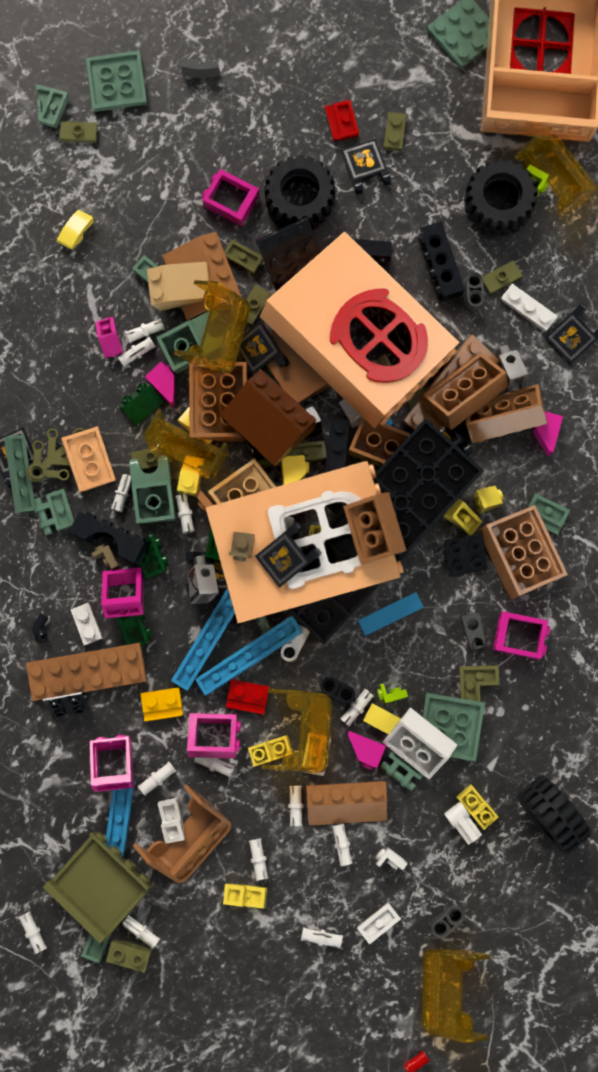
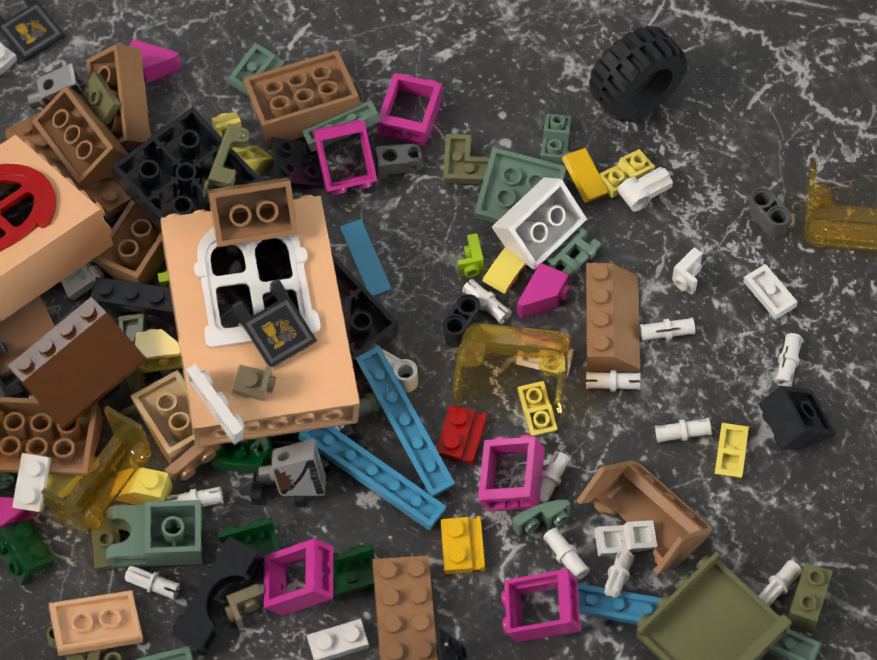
camera: 85 degrees left, 20 degrees down
(140, 817) = (619, 573): none -> white axle
(180, 400) = (30, 482): none -> white plate
(185, 766) = (548, 513): none -> sand green slope
(220, 521) = (216, 403): none -> white plate
(271, 944) = (795, 418): none -> black slope
(423, 499) = (220, 176): none -> olive piece
(469, 775) = (585, 175): none -> yellow tile
(483, 583) = (343, 129): none -> dark pink window
(496, 584) = (364, 111): none -> sand green plate
(501, 400) = (101, 98): none -> olive plate
(504, 750) = (555, 138): none -> sand green slope

